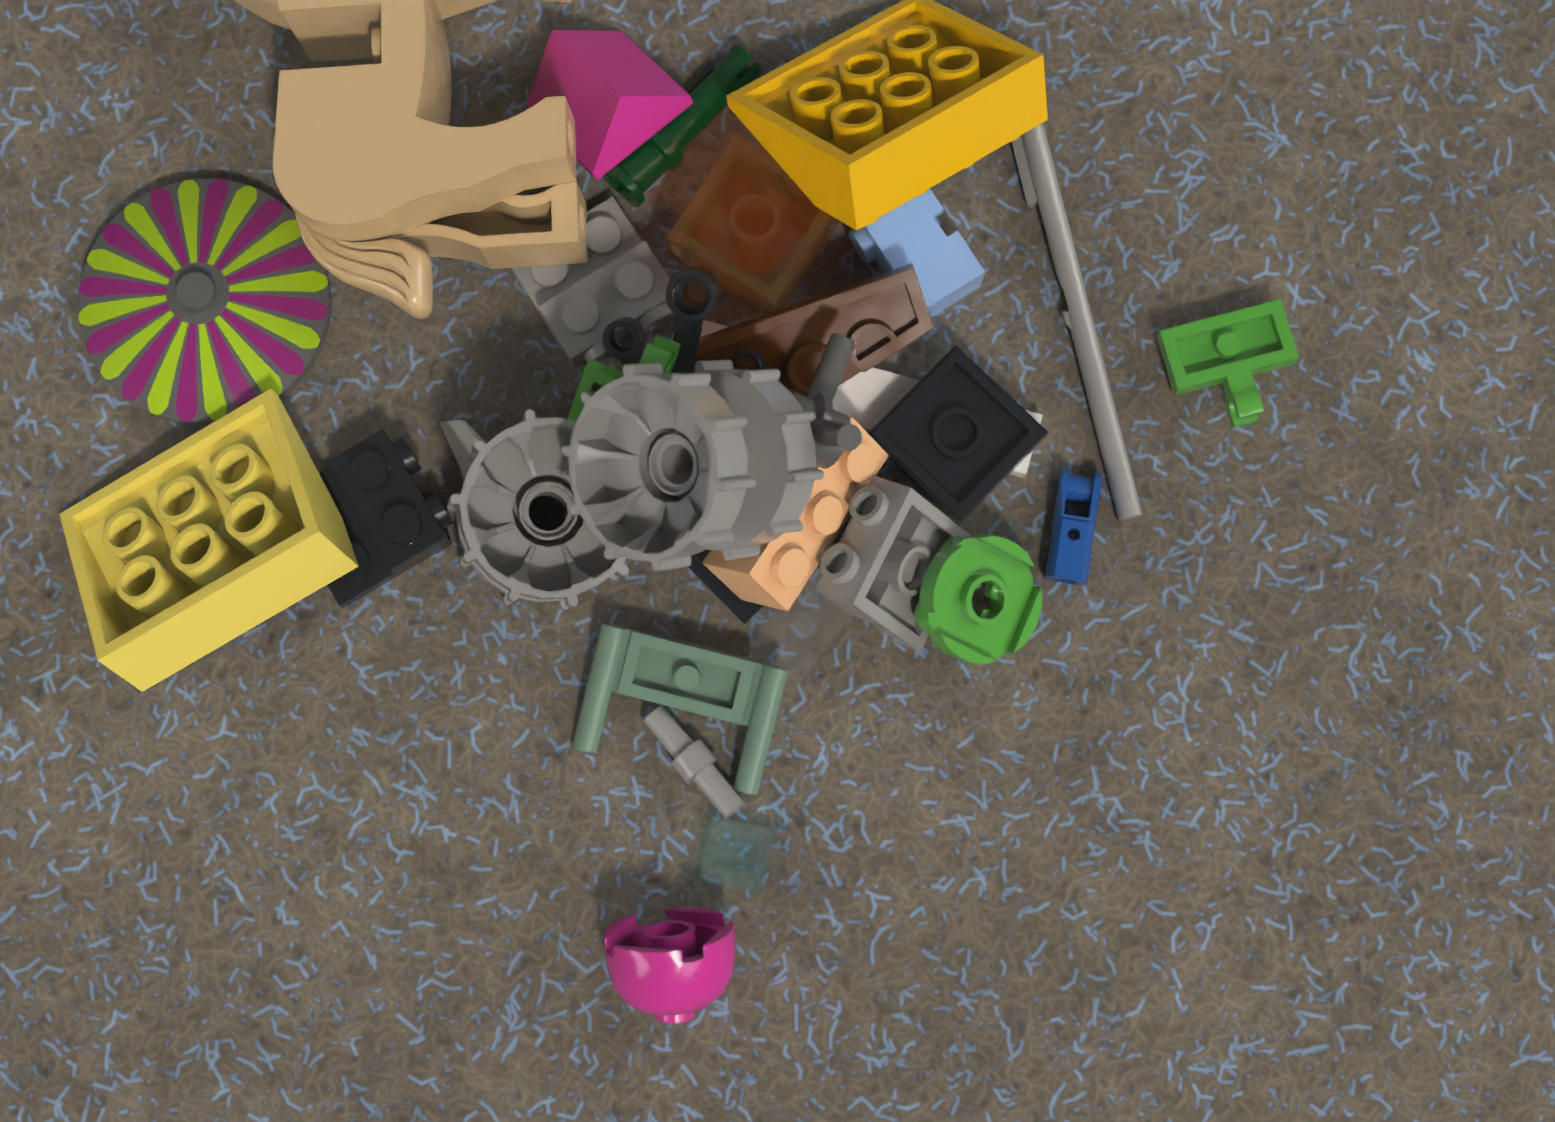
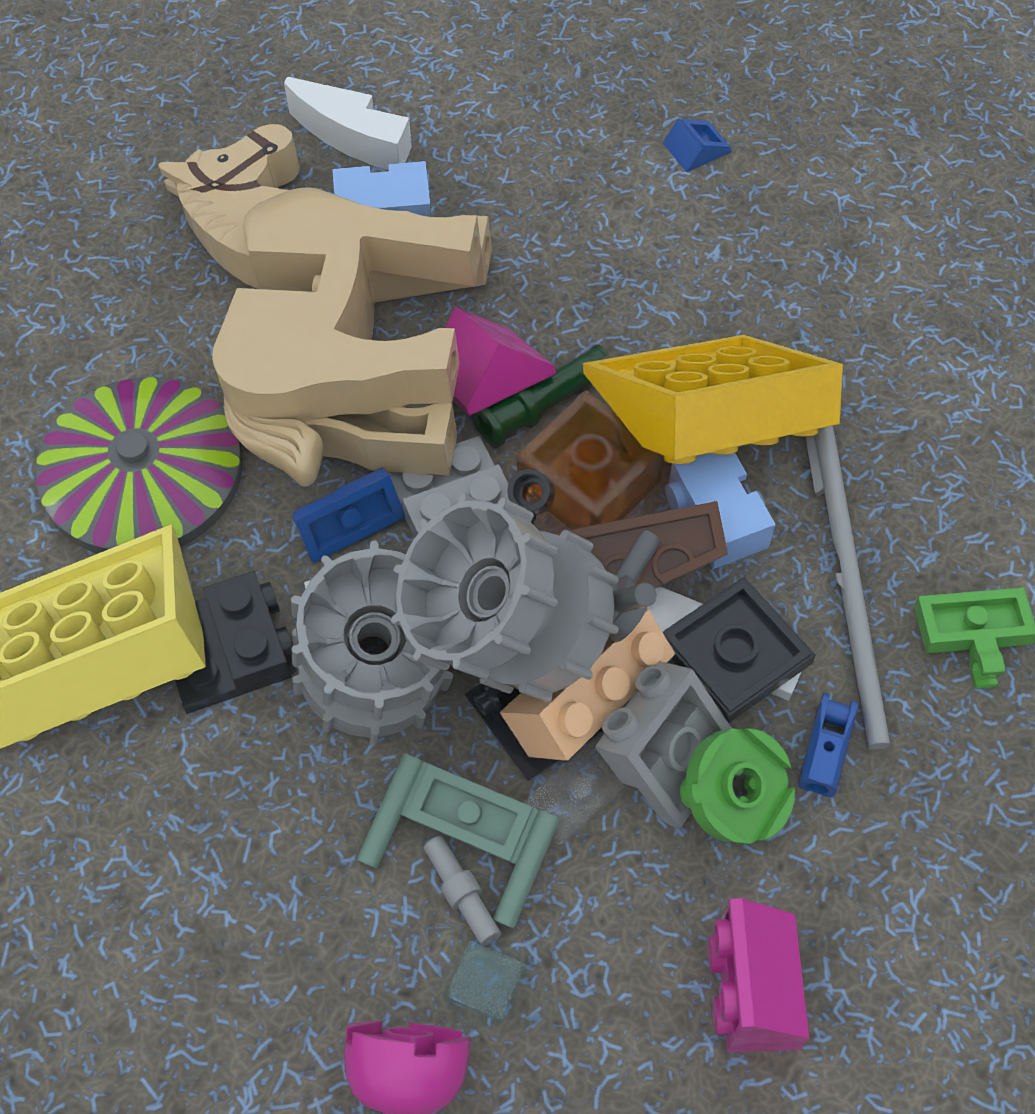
camera: 10 degrees right, 20 degrees down
(475, 332) = (348, 514): none -> blue plate
(1024, 809) = (760, 979): none -> dark pink slope

